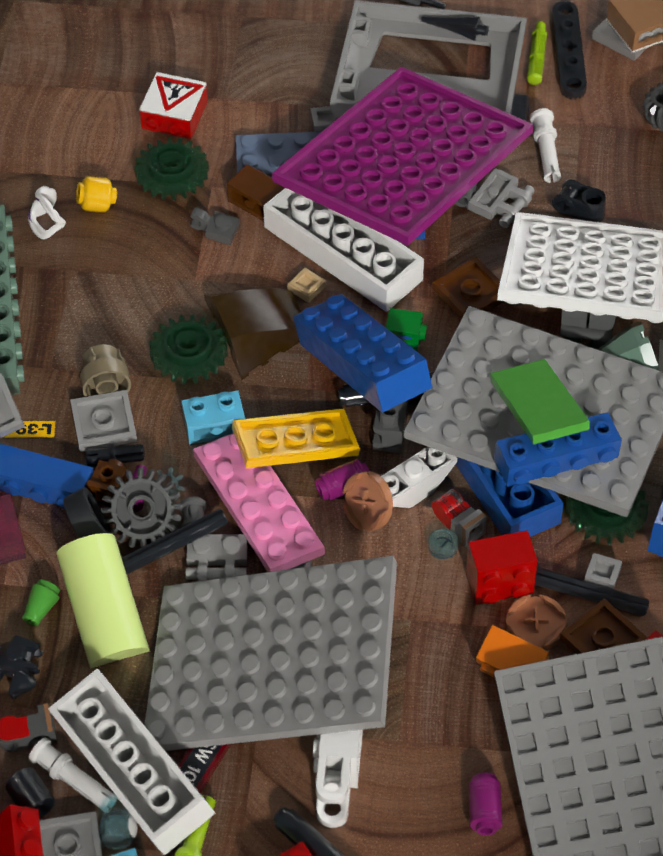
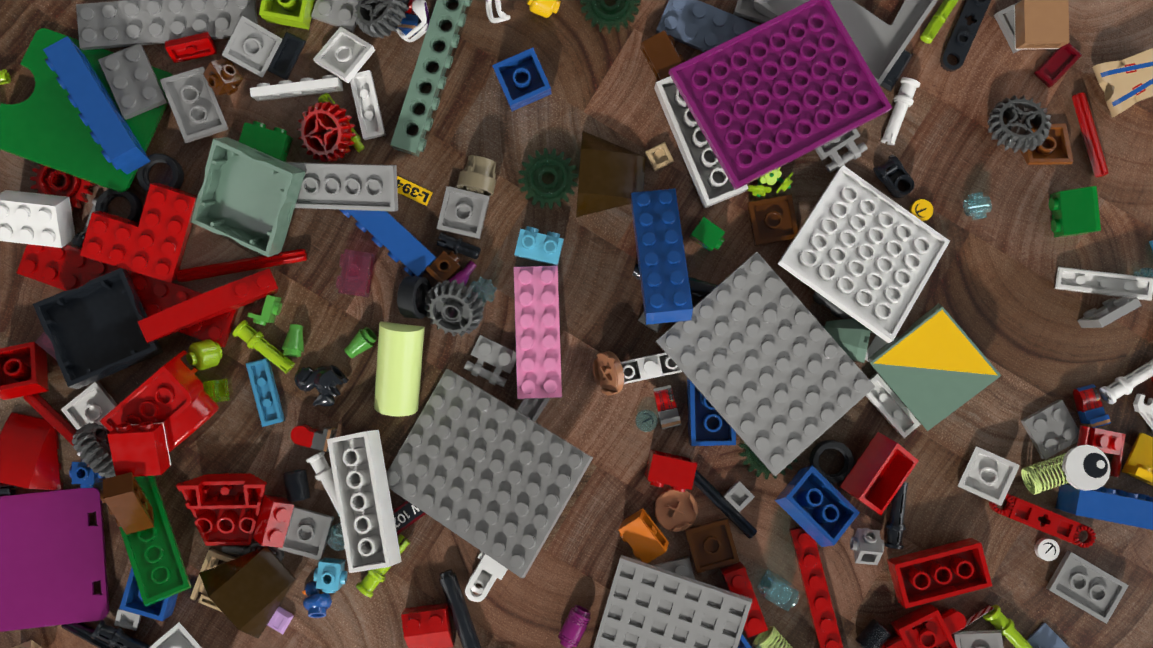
camera: 25 degrees right, 35 degrees up
(109, 266) = (522, 79): none -> blue brick
(174, 540) = (466, 340): black axle -> none
(195, 511) = (489, 323): dark grey bush -> none
(217, 228) = (622, 73): dark grey plate -> none
(295, 438) = (586, 293): yellow tile -> none
(332, 482) = (602, 341): magenta head -> none
(437, 240) = (770, 179): none -> lime plant
(523, 461) = (750, 416): blue brick -> none
(539, 401) = (757, 374): bright green tile -> none
(630, 217) = (921, 209): none -> yellow tile

